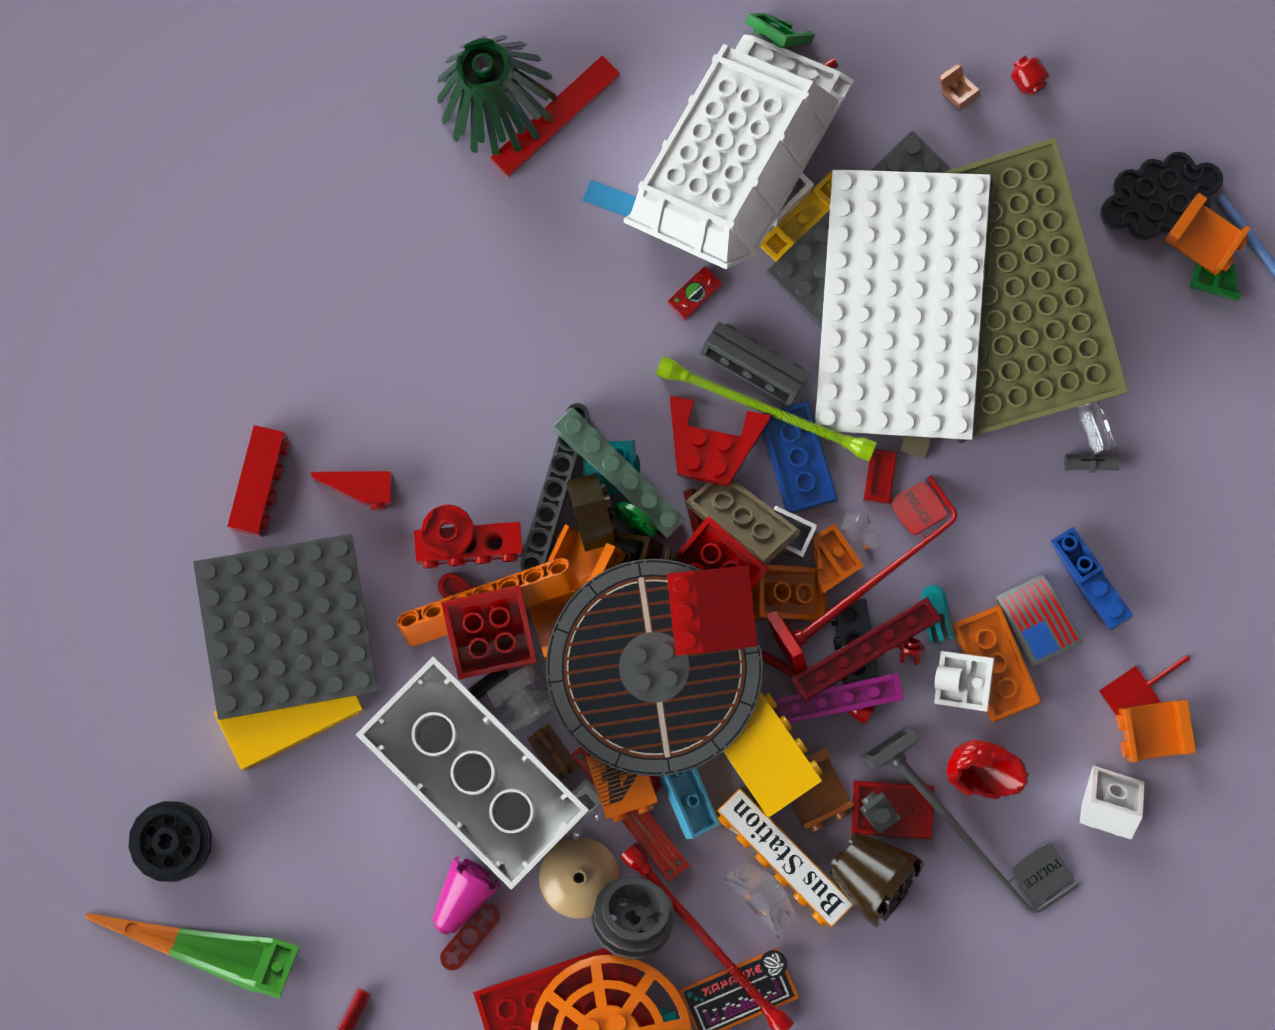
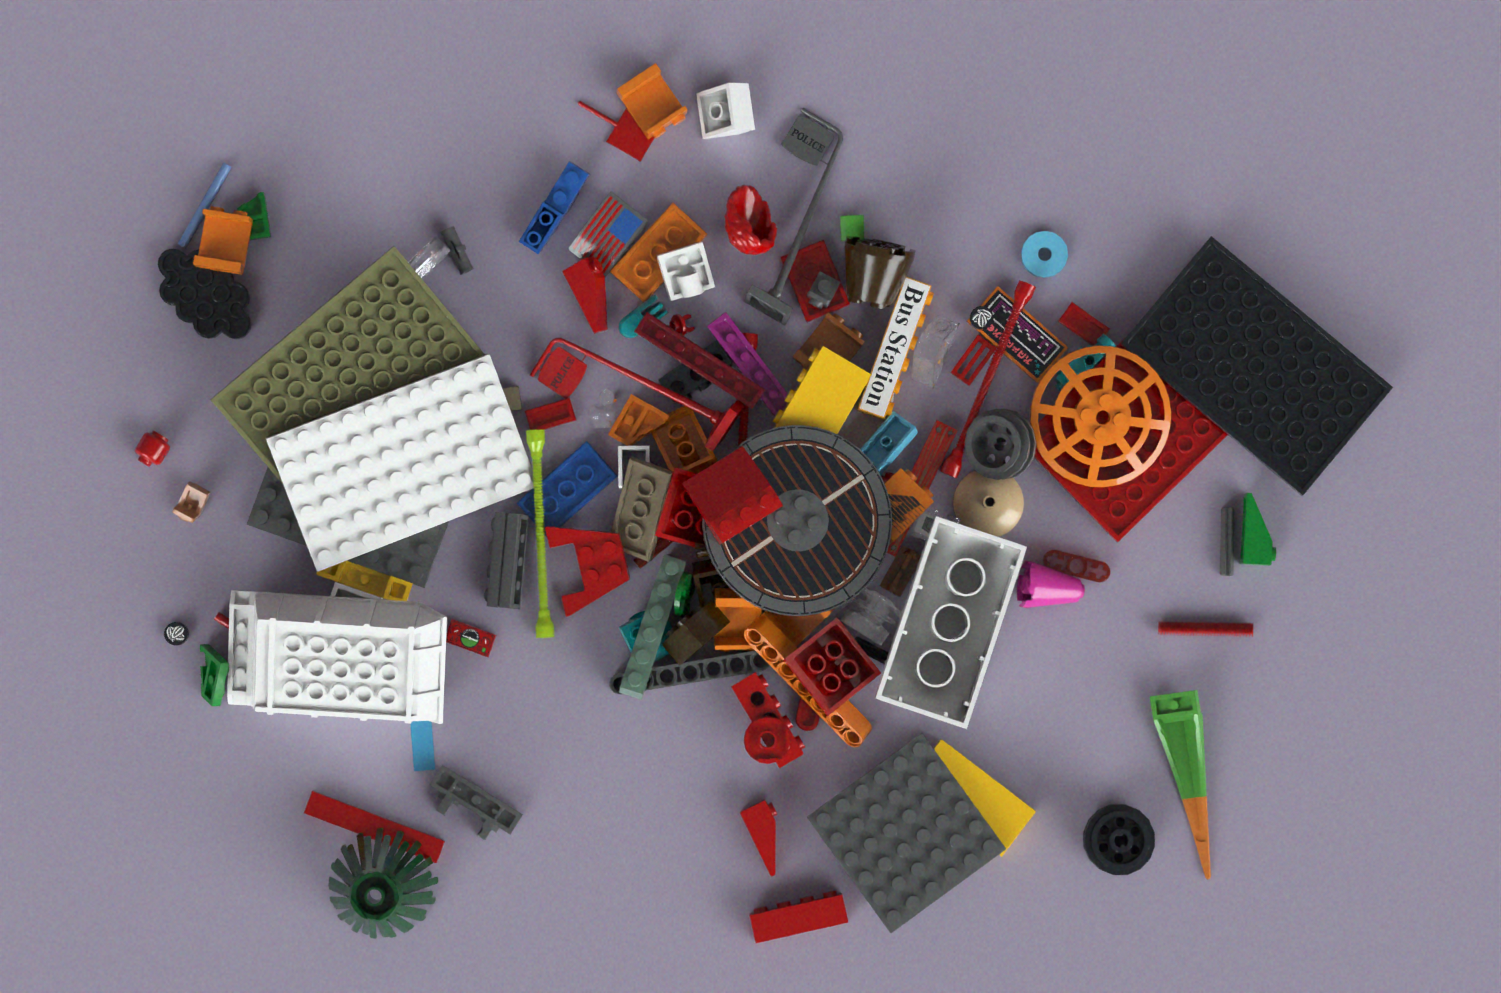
camera: 115 degrees left, 5 degrees up
(550, 211) = (460, 791): none -> dark grey hinge
(722, 913) = (985, 343): none -> red tile
(836, 17) = (176, 633): none -> tile
(931, 875) = (852, 226): none -> bright green slope
(991, 574) = (590, 291): none -> red slope

